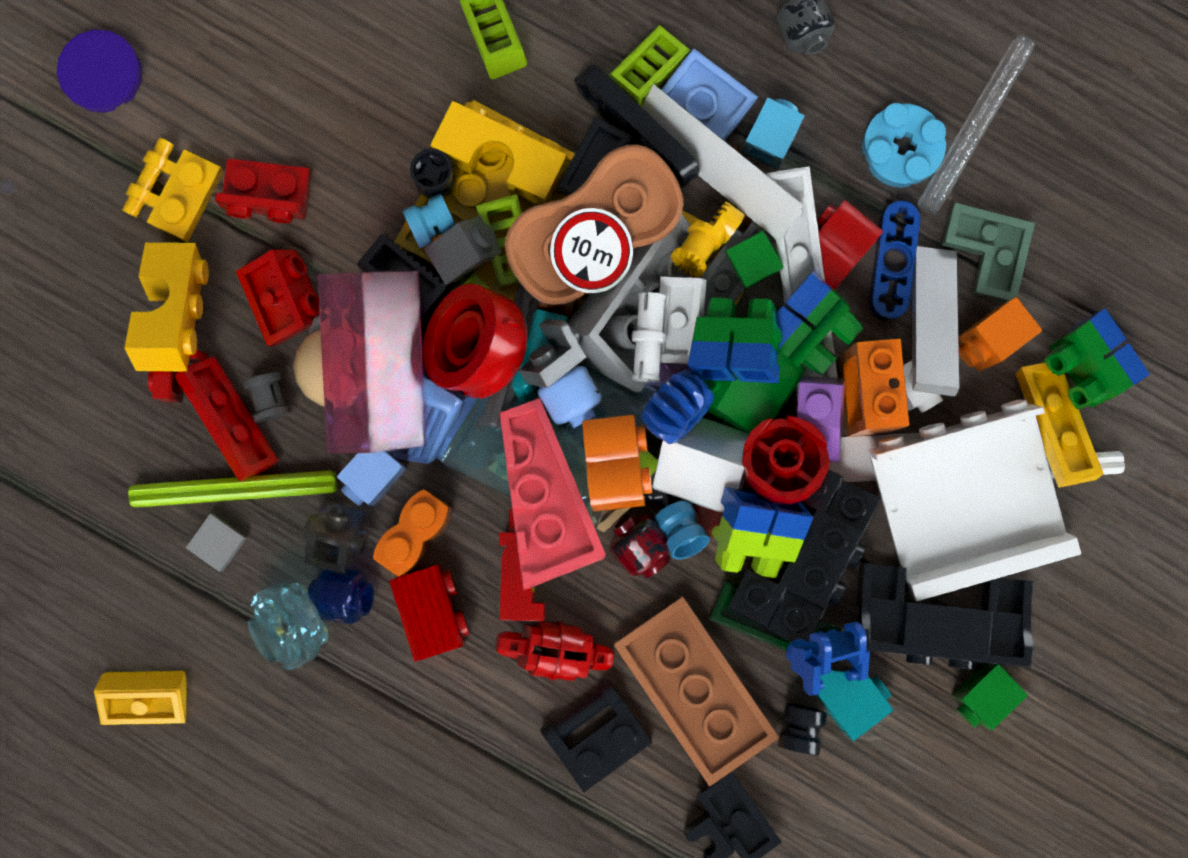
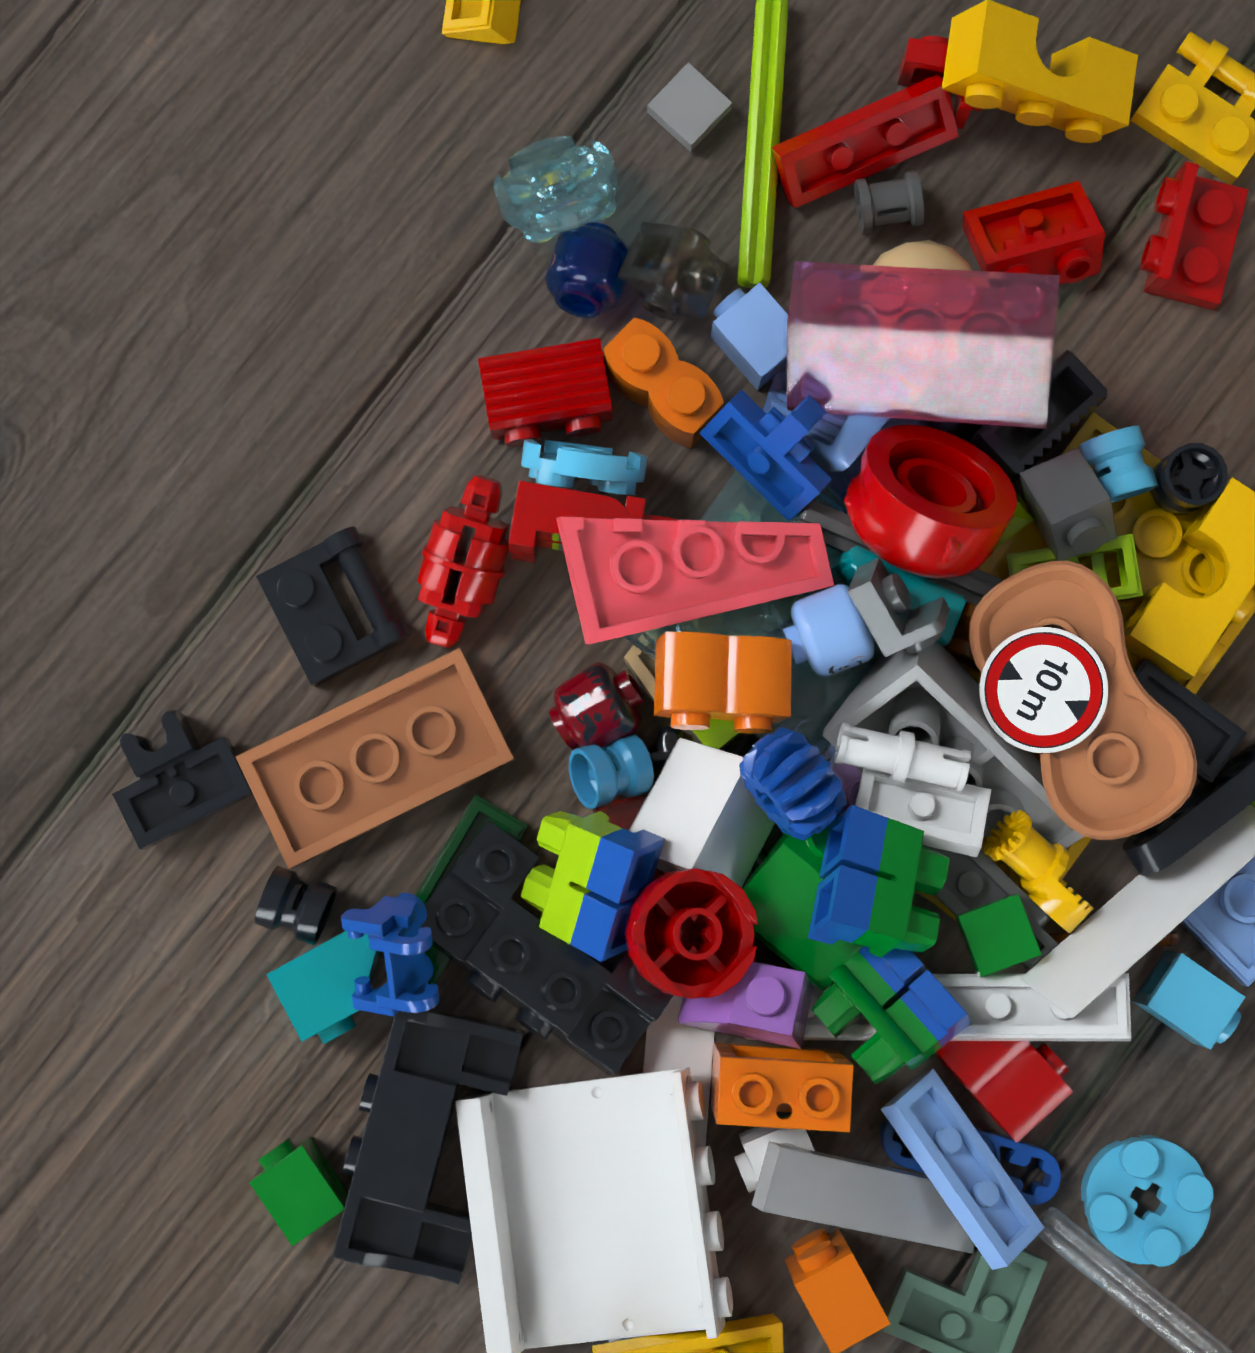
camera: 100 degrees right, 0 degrees up
(454, 452) = (771, 450): none -> blue hinge
(476, 578) = (566, 460): none -> medium azure plate
(906, 263) = (963, 1169): none -> light blue plate

